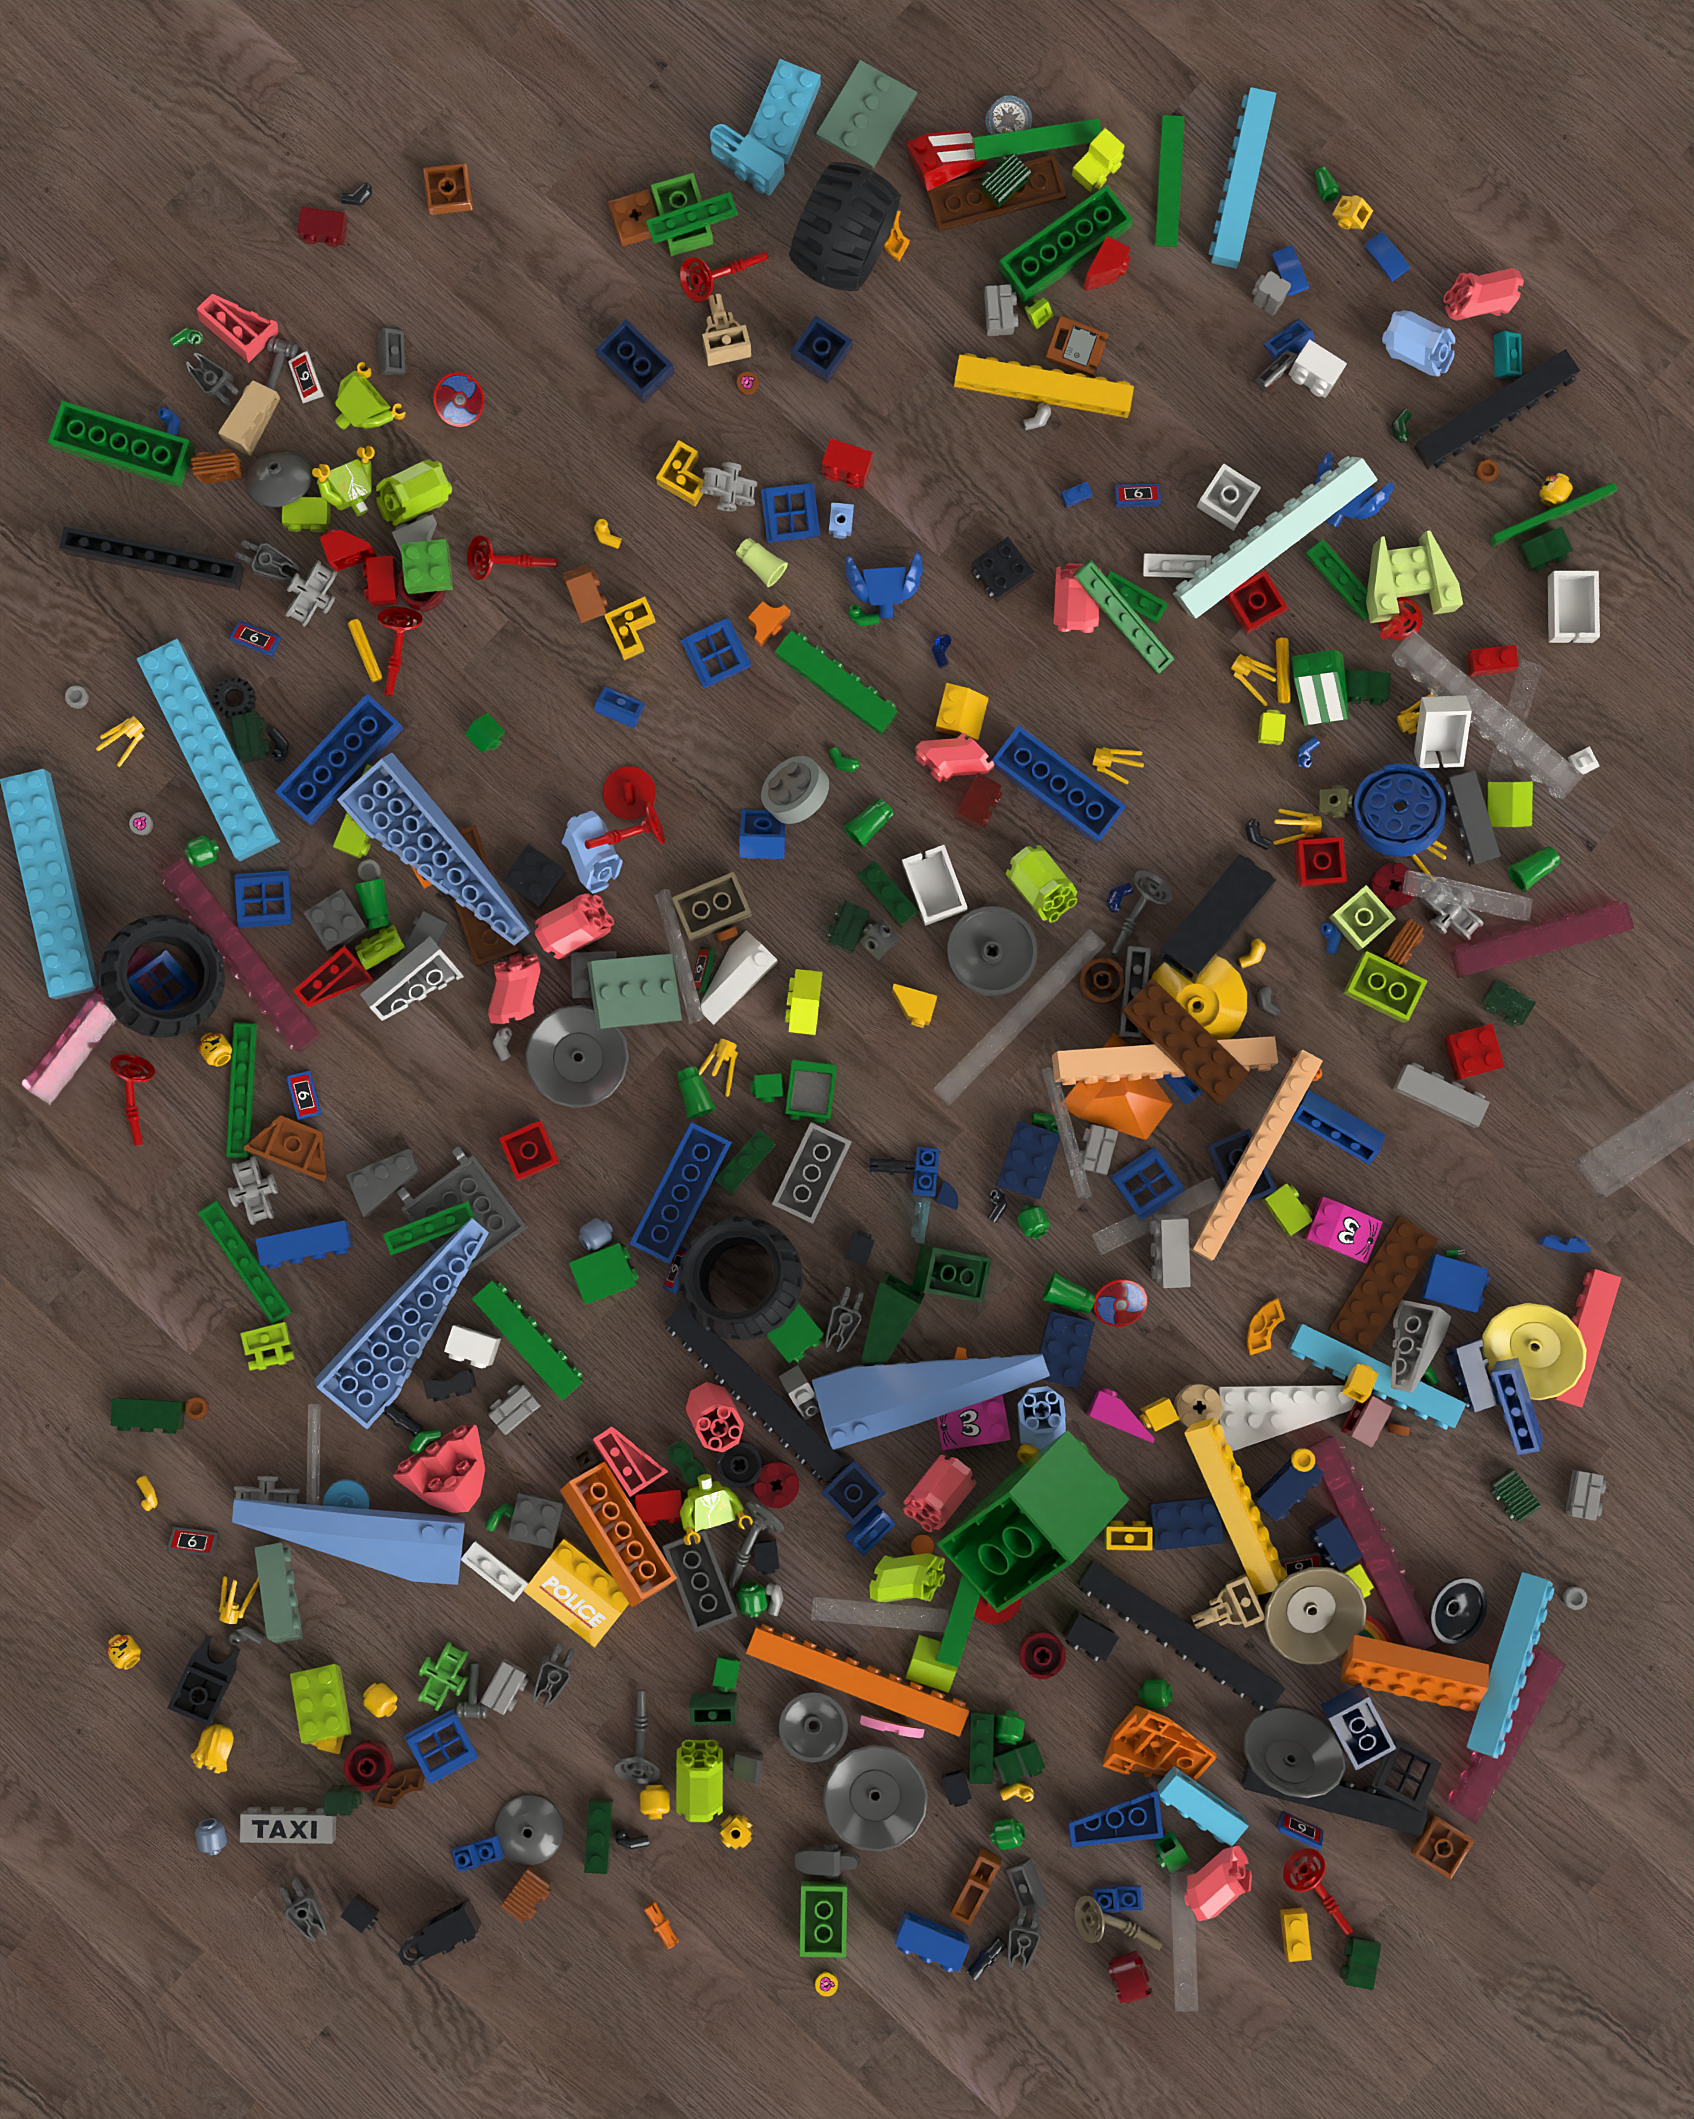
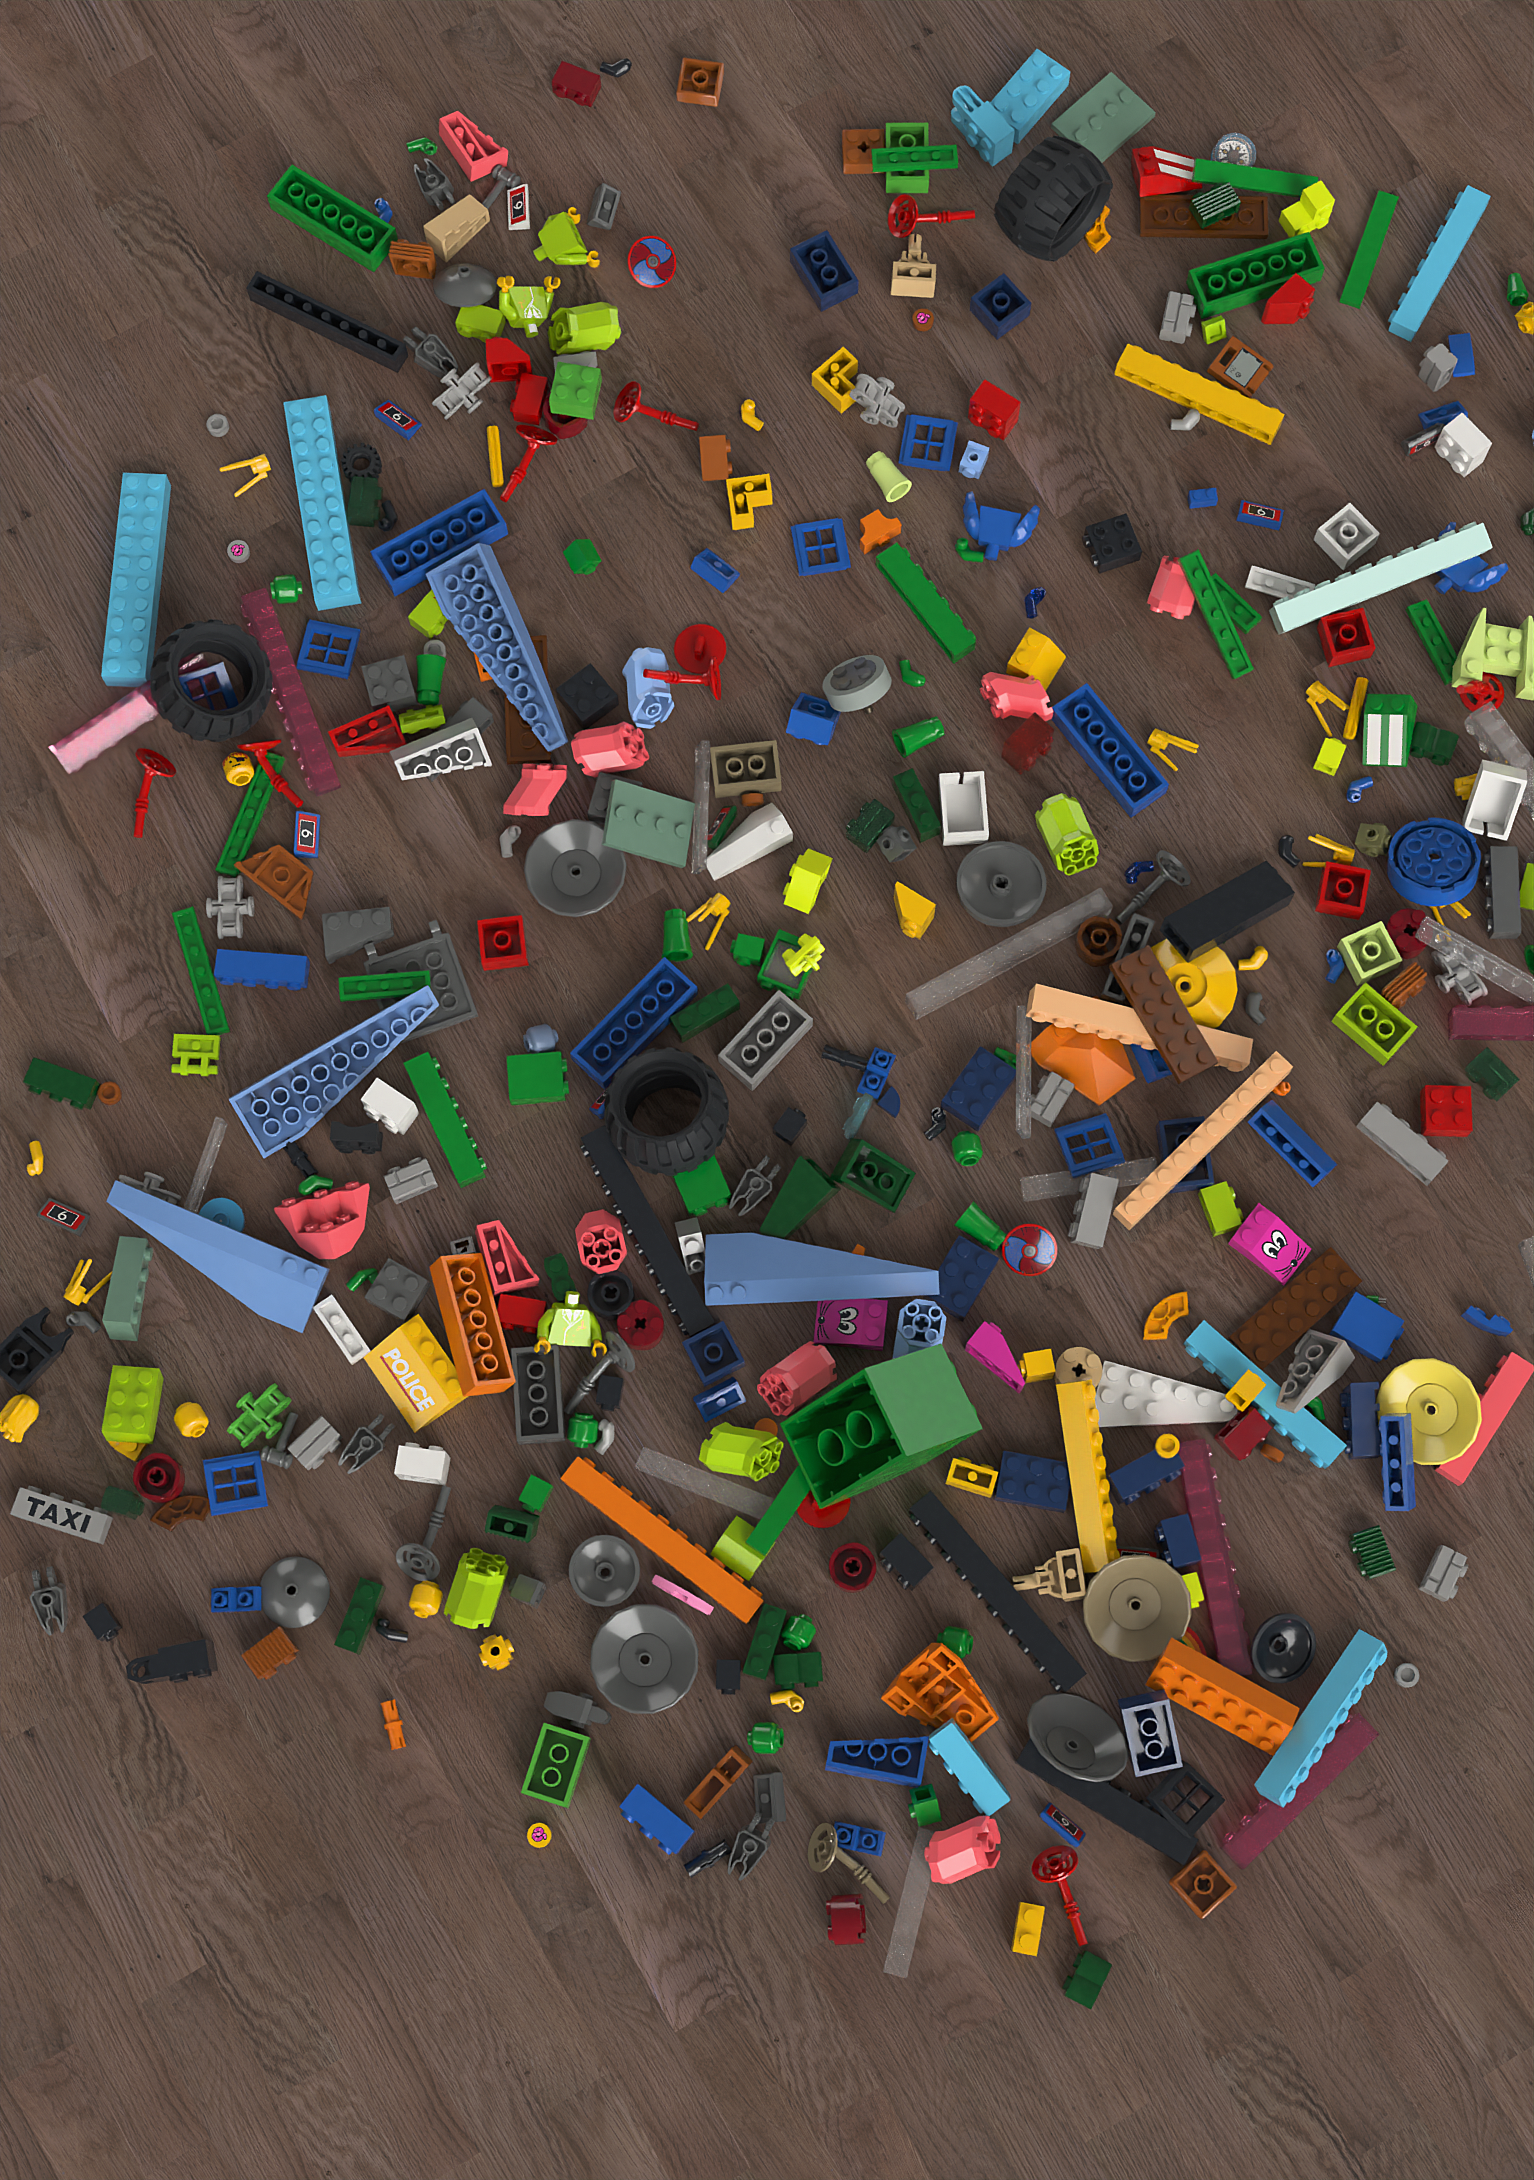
camera: 25 degrees right, 10 degrees down
(230, 1023) = (279, 783): none -> red dish
(612, 1679) = (422, 1464): none -> white brick
(828, 1083) = (805, 957): none -> neon yellow hips

